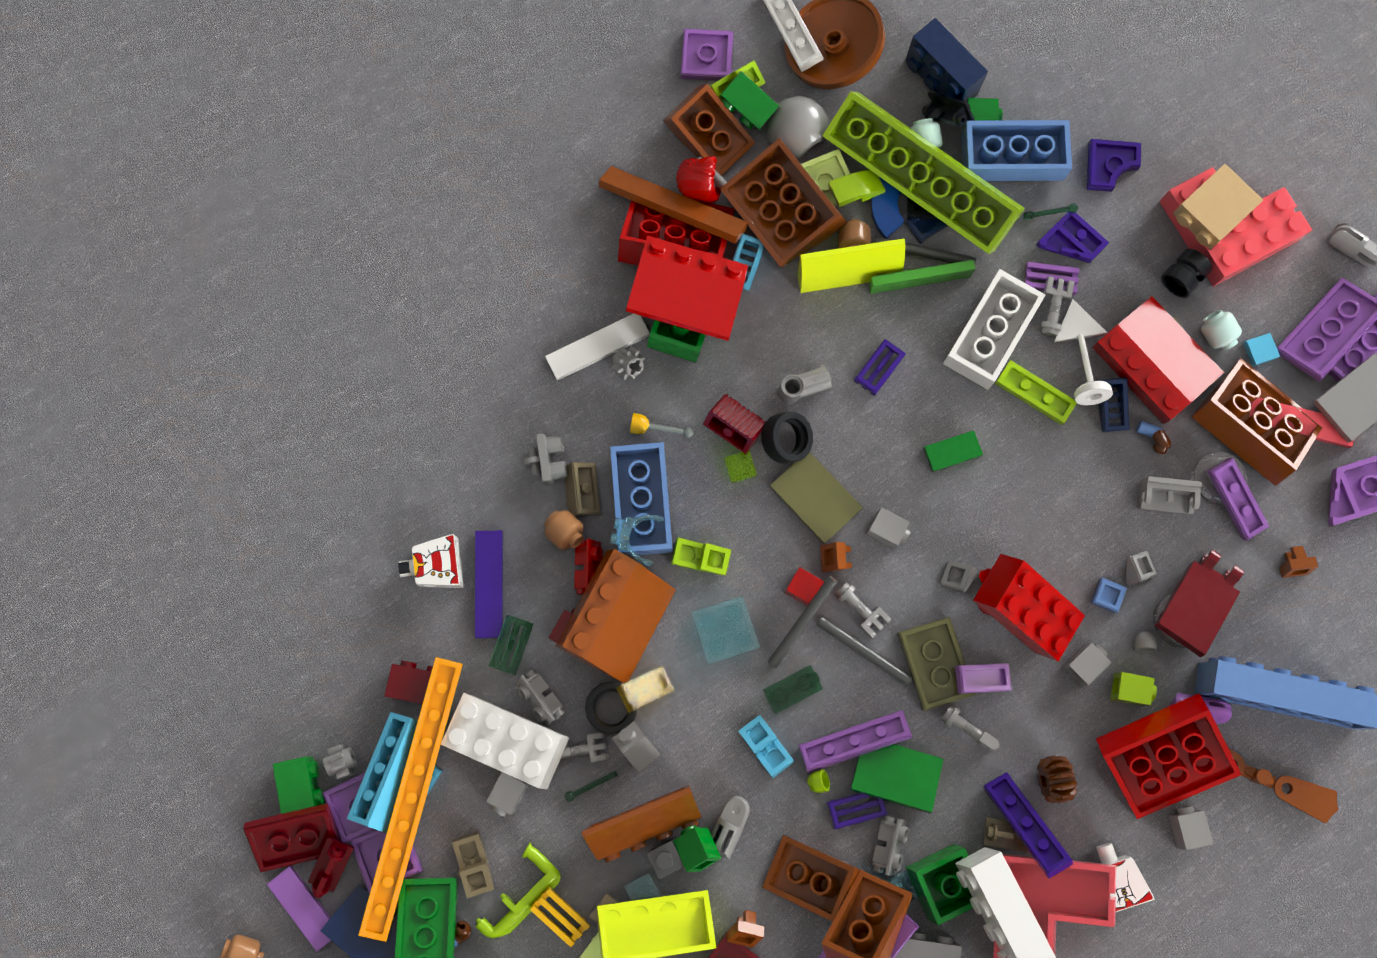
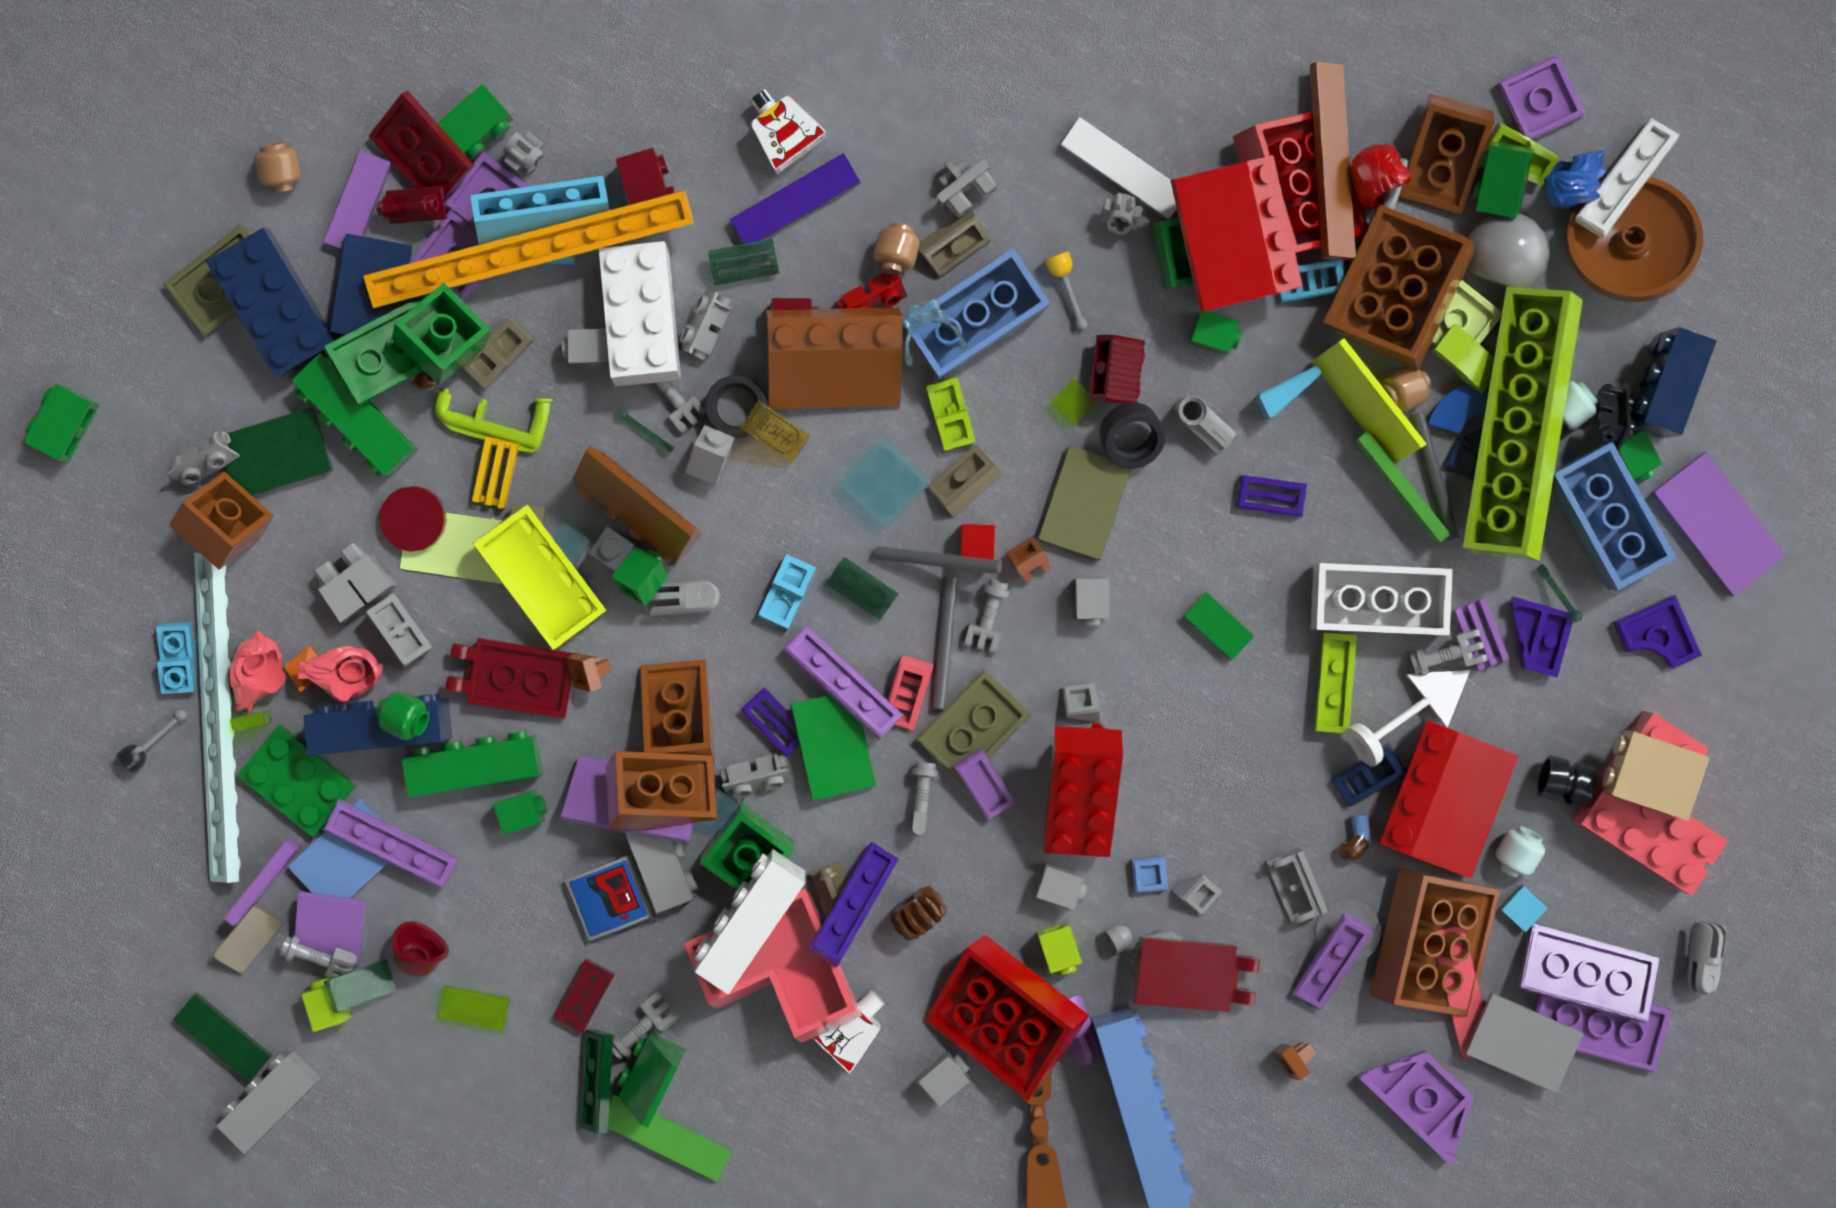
camera: 55 degrees right, 10 degrees up
(434, 900) = (441, 333): none -> green brick
(745, 344) = (1215, 332): none -> green brick
(754, 573) = (964, 481): none -> dark tan slope
(775, 58) = (1575, 180): none -> blue hair
(813, 321) = (1279, 396): none -> medium azure slope
(819, 781) = (780, 667): lime hinge -> none
(871, 680) = (914, 666): none -> coral slope
(1055, 88) = (1718, 524): none -> medium lavender tile

